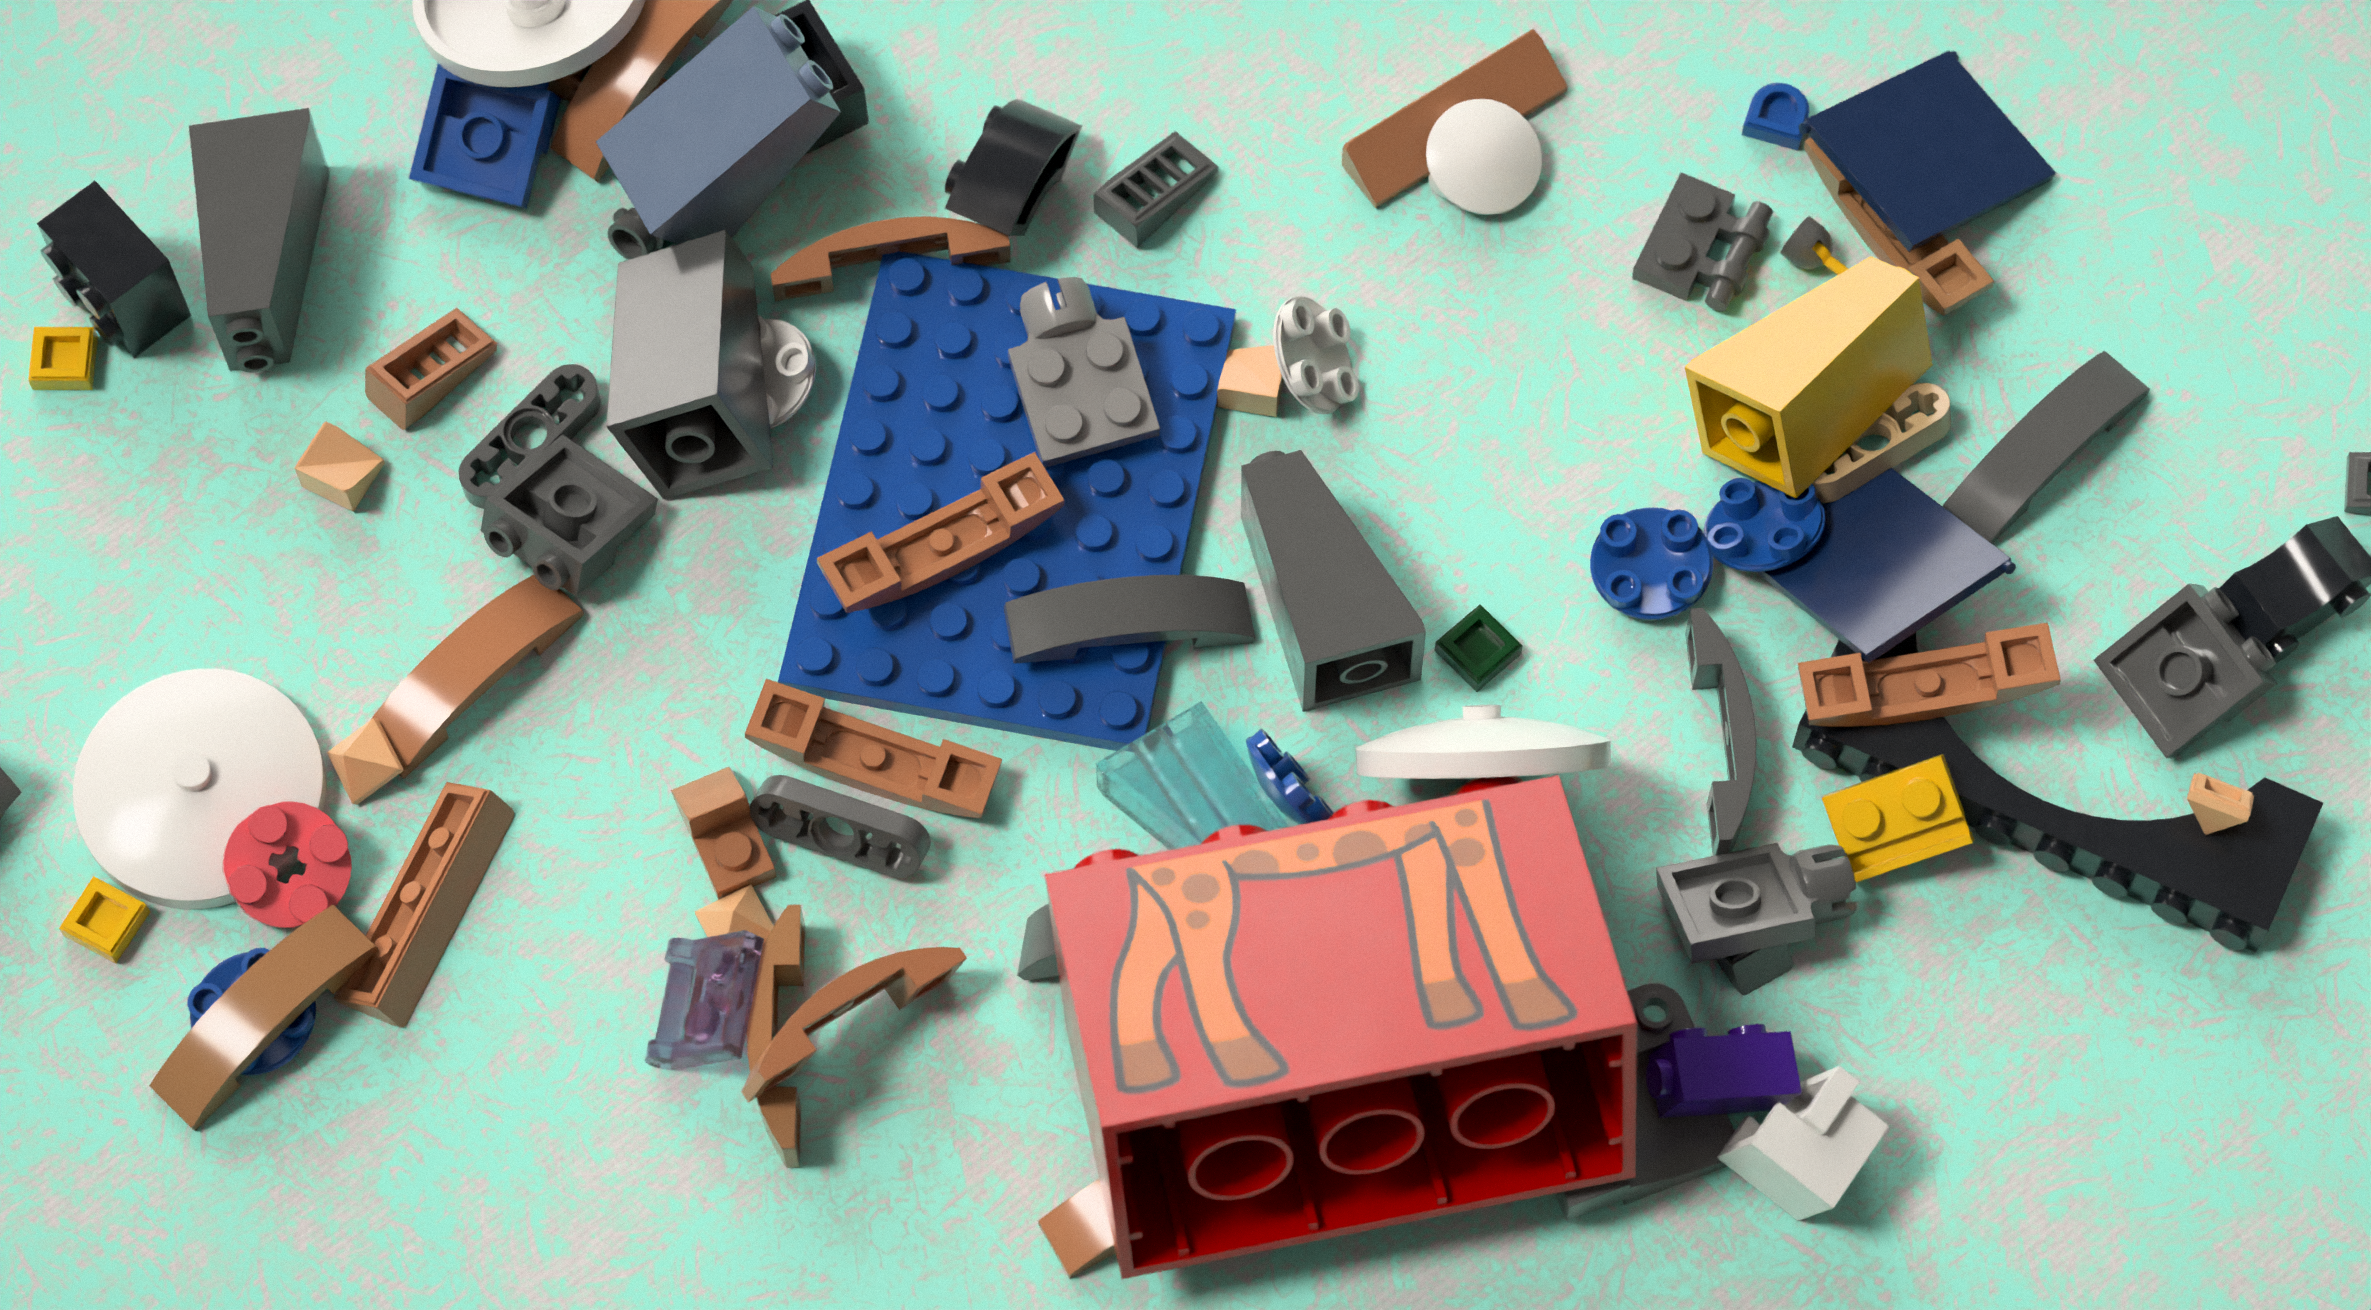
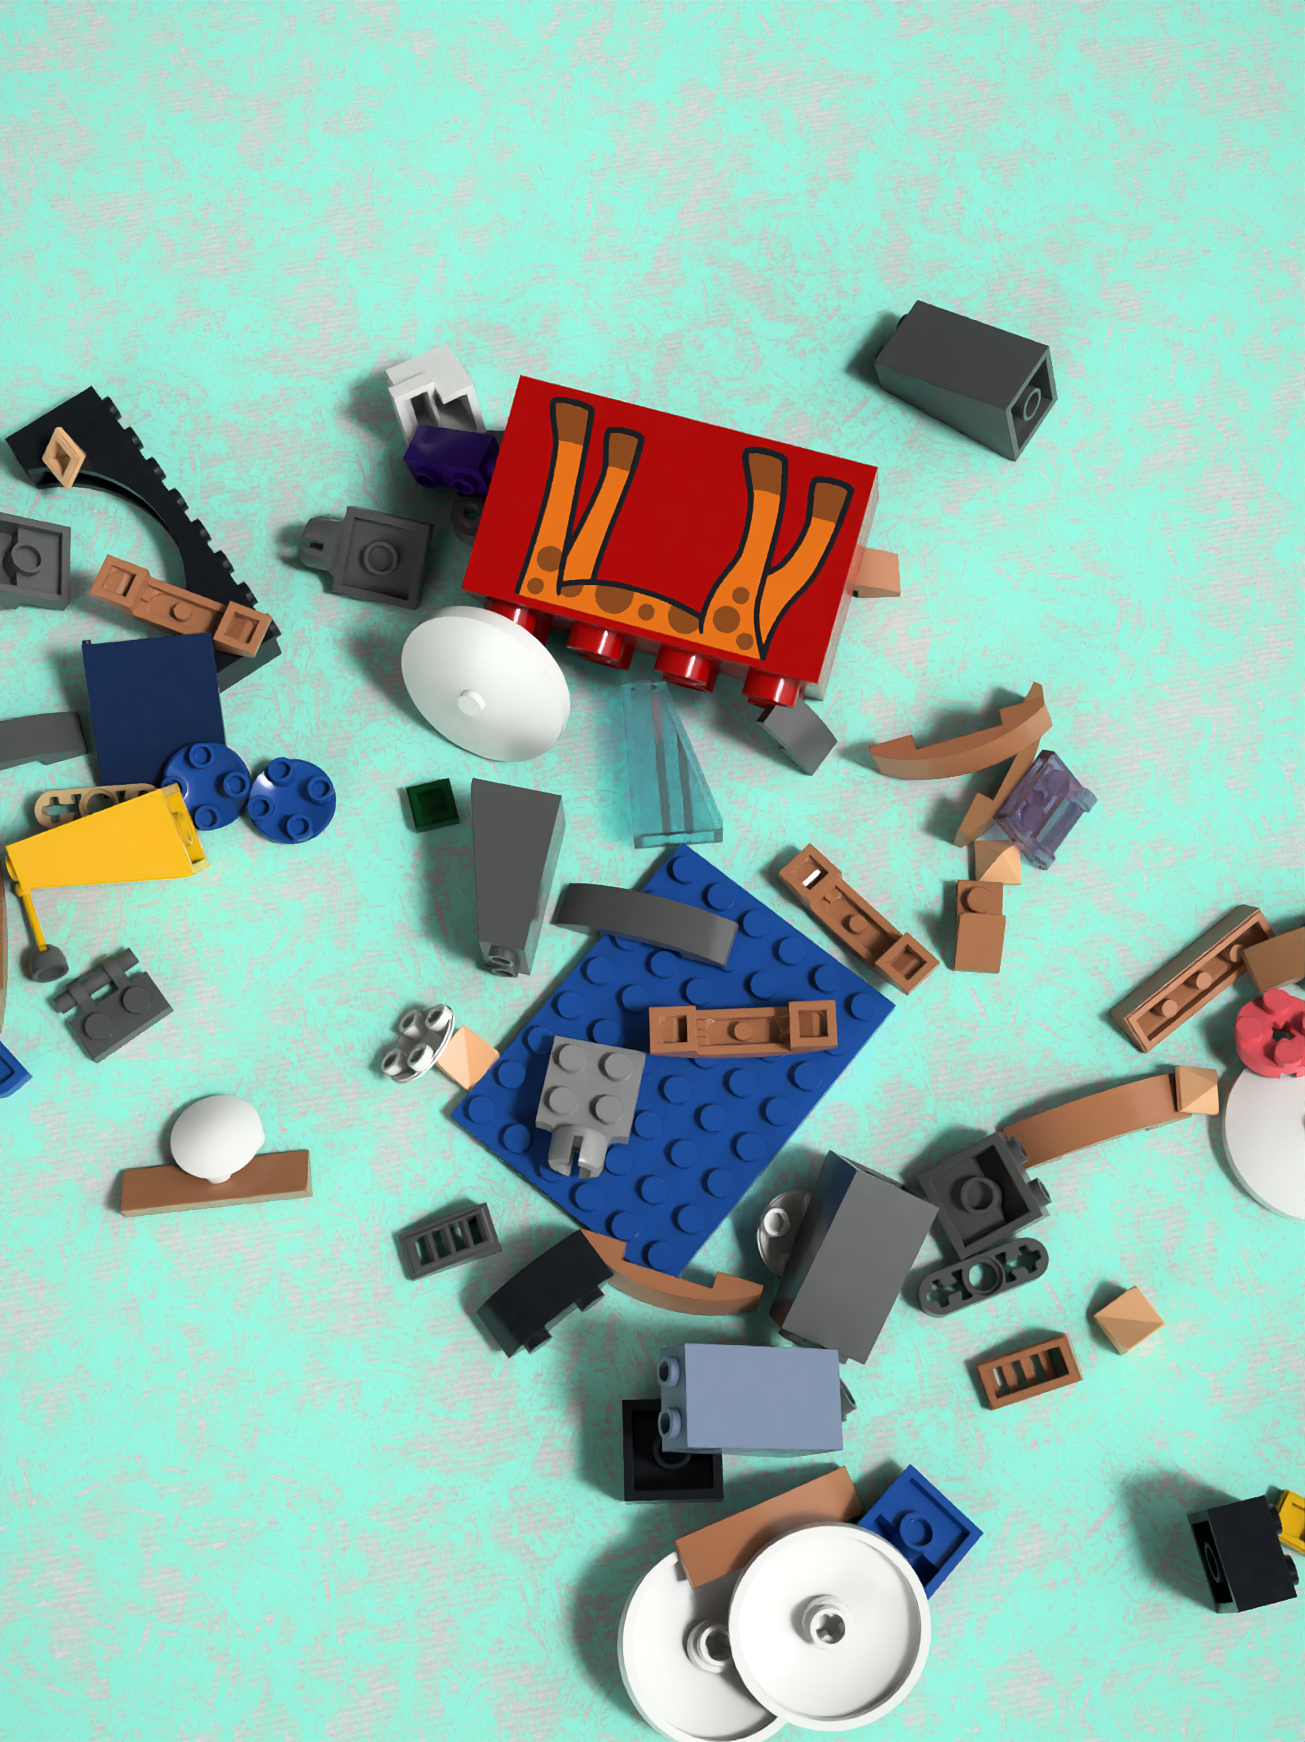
camera: 150 degrees left, 5 degrees up
(258, 224) = (1124, 1532): dark grey slope -> none
(875, 854) = (904, 883): dark grey beam -> none
(1285, 781) = (610, 756): blue dish -> none
(1716, 666) = (343, 622): dark grey slope -> none
(1898, 818) = (254, 557): yellow plate -> none

